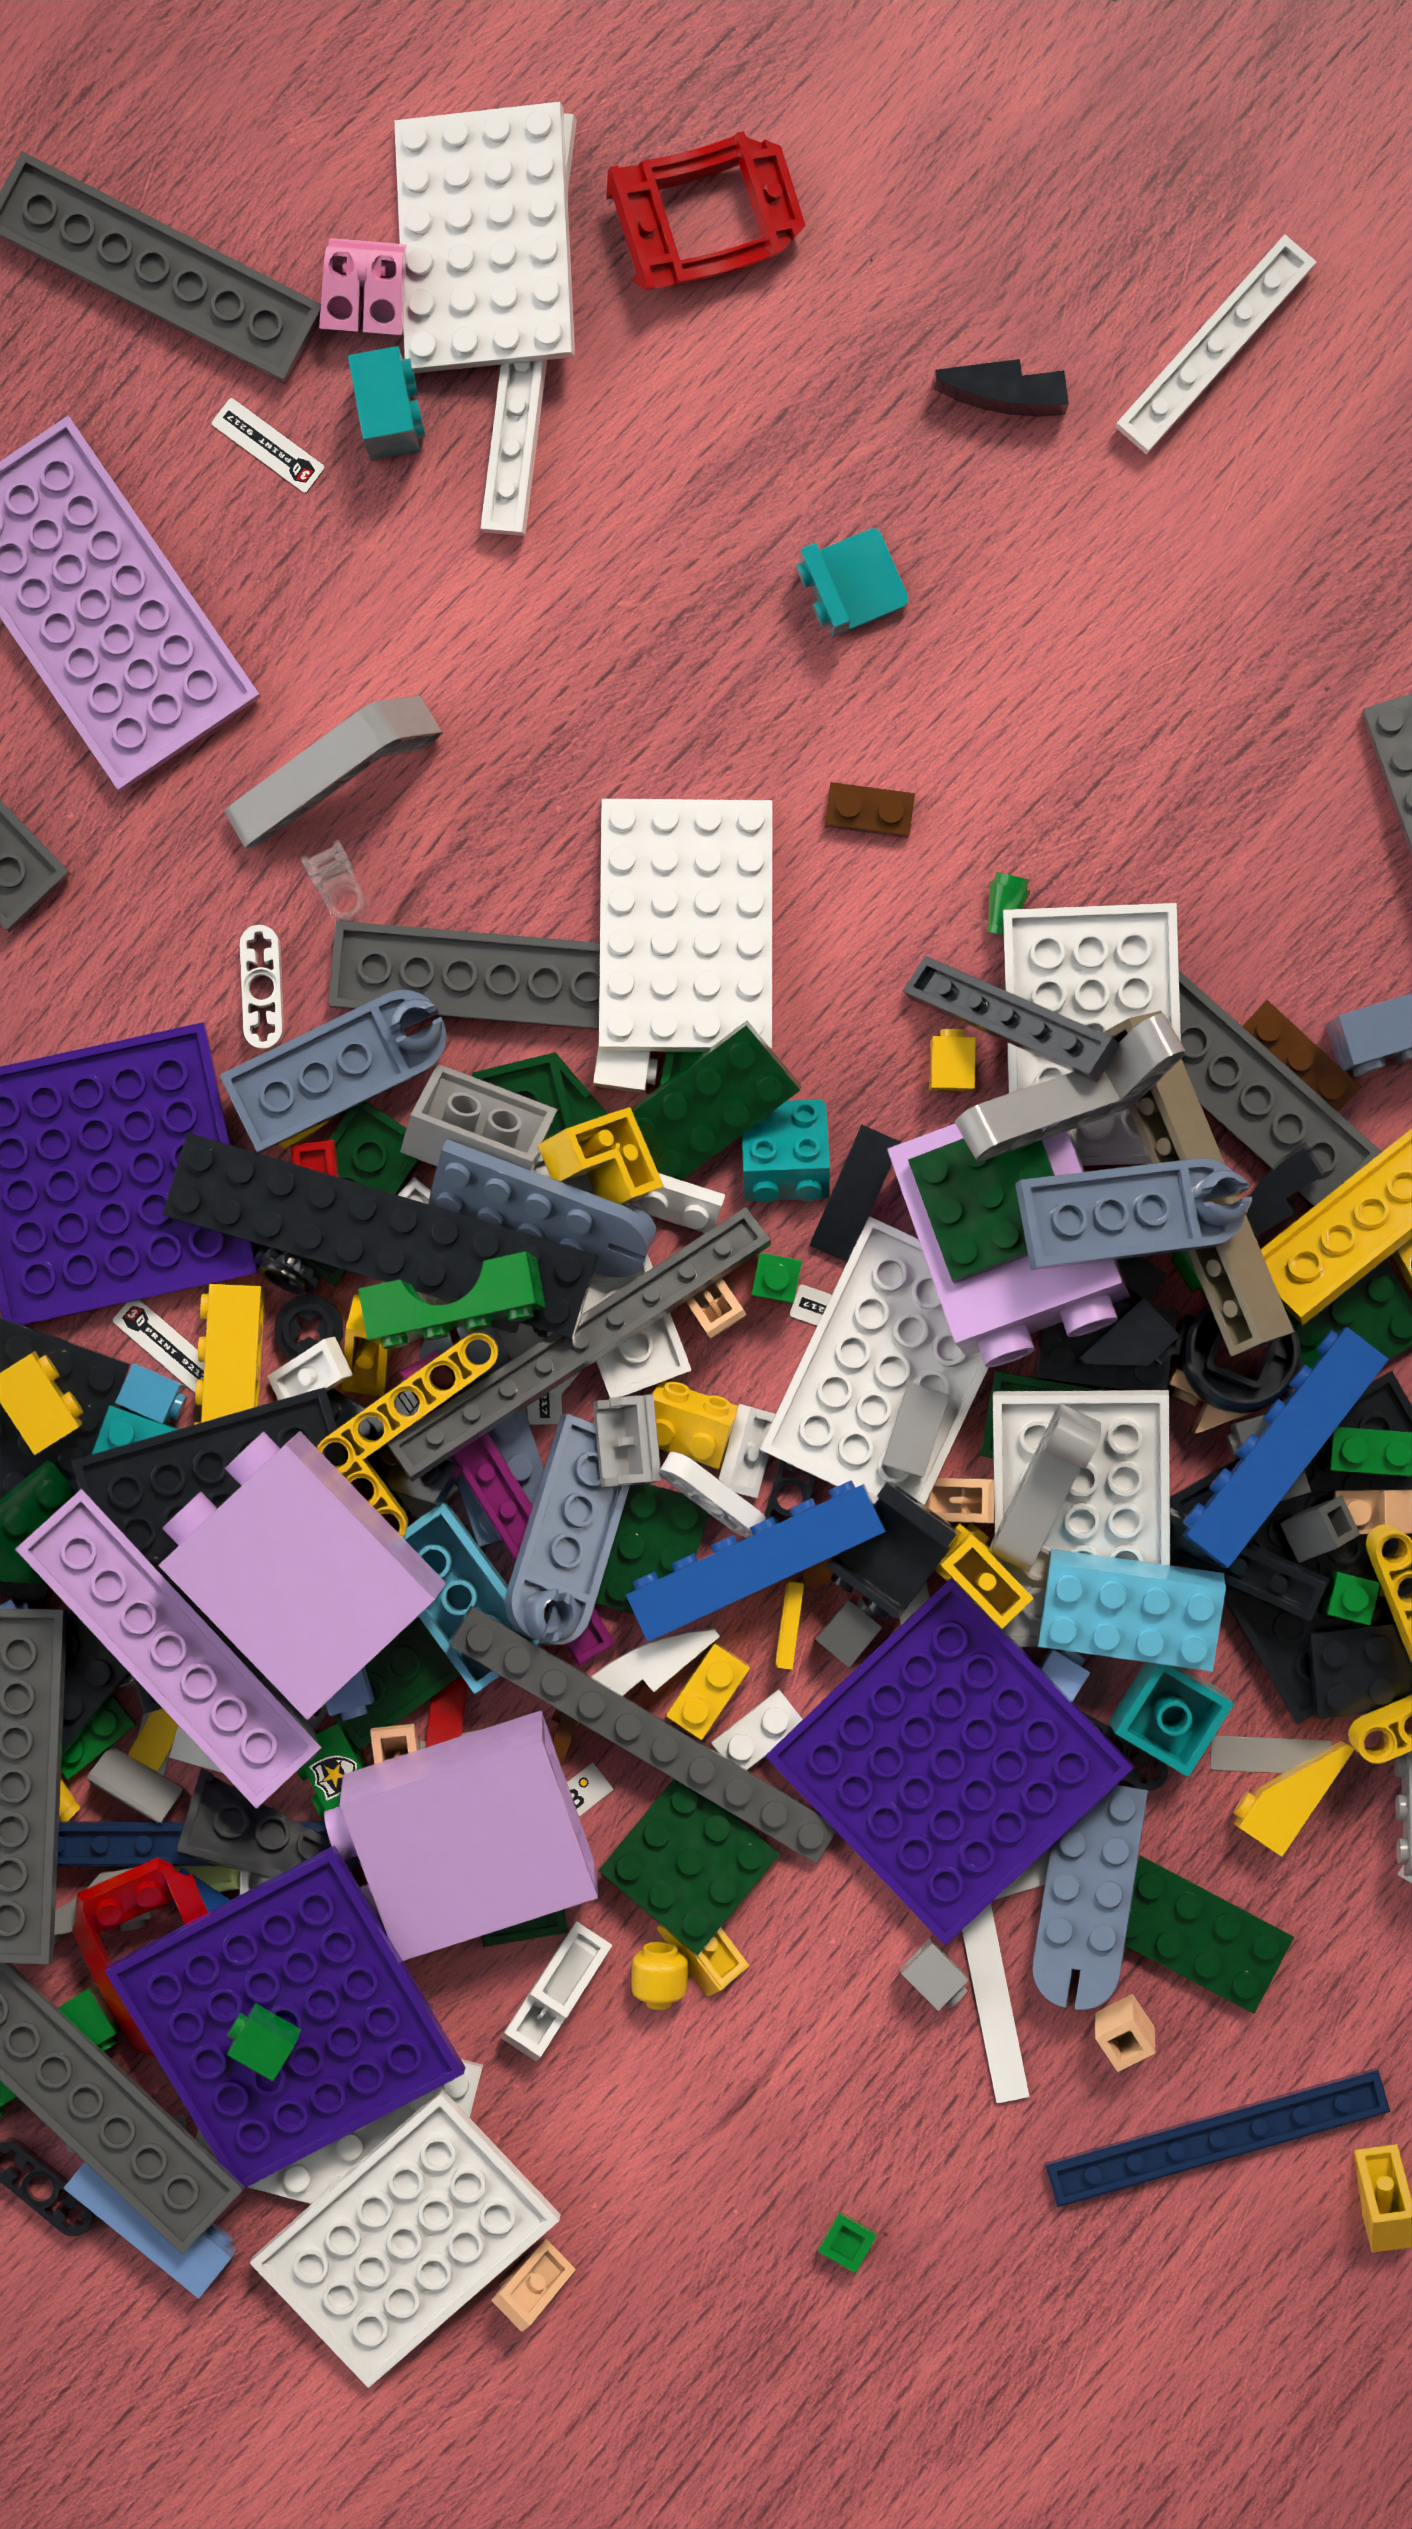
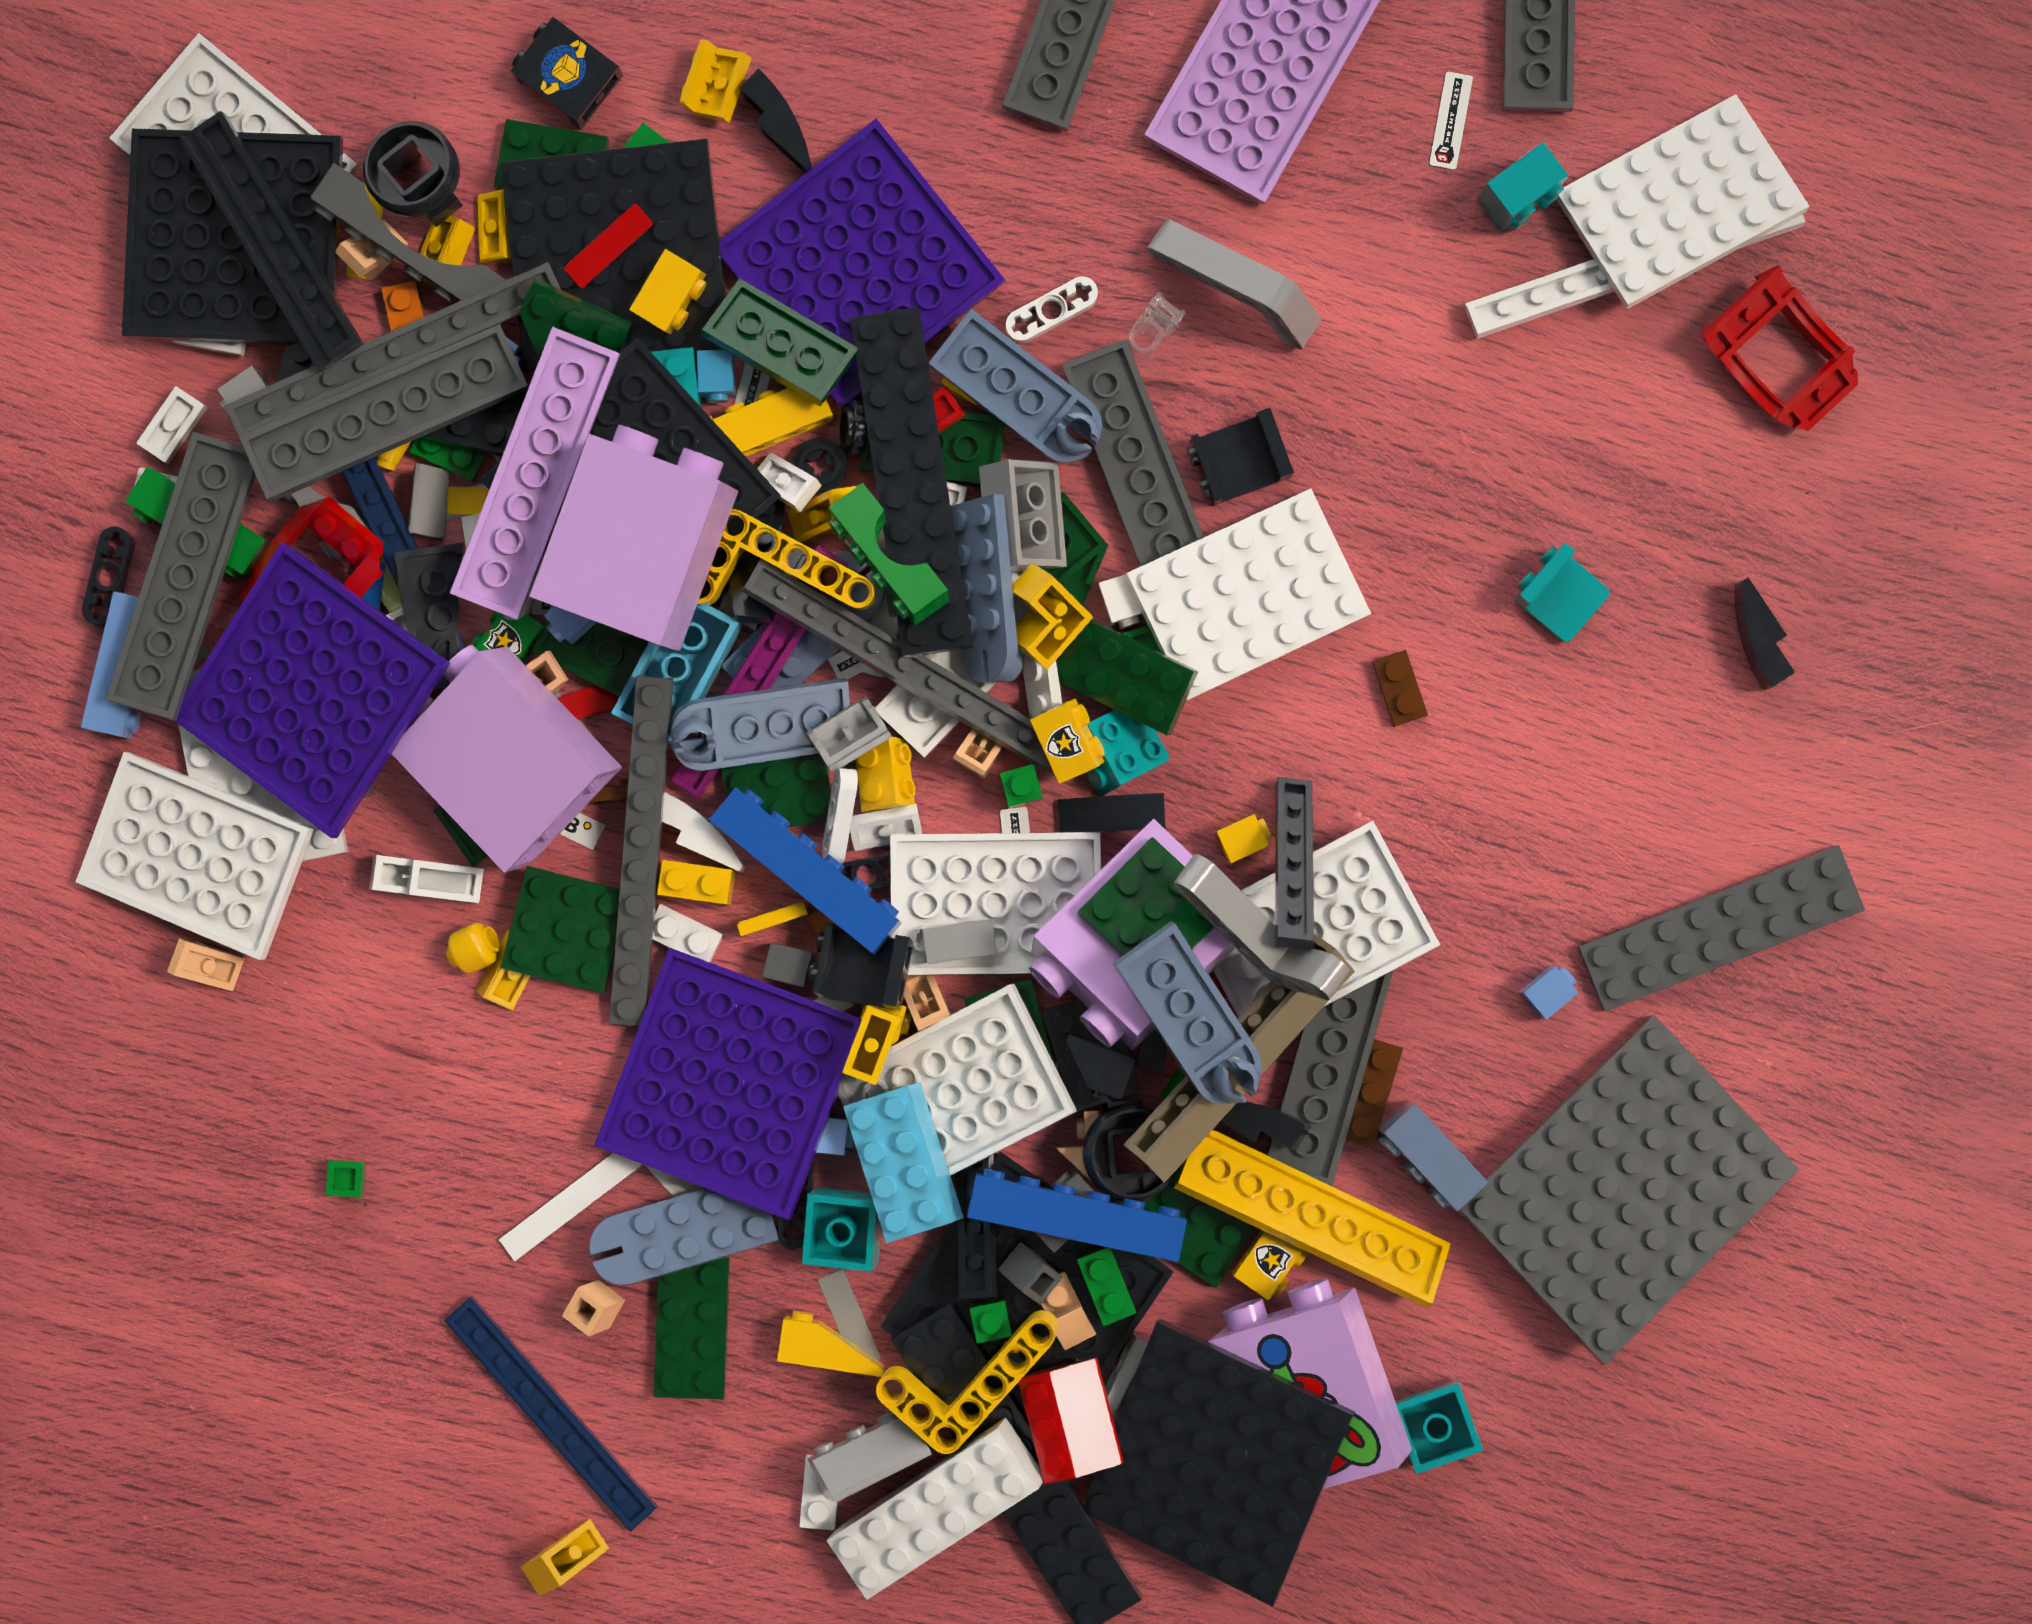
camera: 65 degrees right, 0 degrees up
(152, 1305) = (779, 342): none -> dark green plate
(262, 2041) = (284, 680): green brick -> none
(361, 264) = (1601, 130): bright pink hips -> none
(529, 859) = (1240, 458): none -> black panel
(753, 1200) = (1068, 740): none -> yellow brick
(935, 1976) = (569, 1149): light grey brick -> none
(1005, 893) = (1386, 817): green cone -> none
(1045, 1485) = (962, 1054): light grey beam -> none
(1215, 344) = (1871, 775): white plate -> none
(1283, 809) = (1549, 991): none -> medium blue brick
(1303, 589) = (1721, 928): none -> dark grey plate

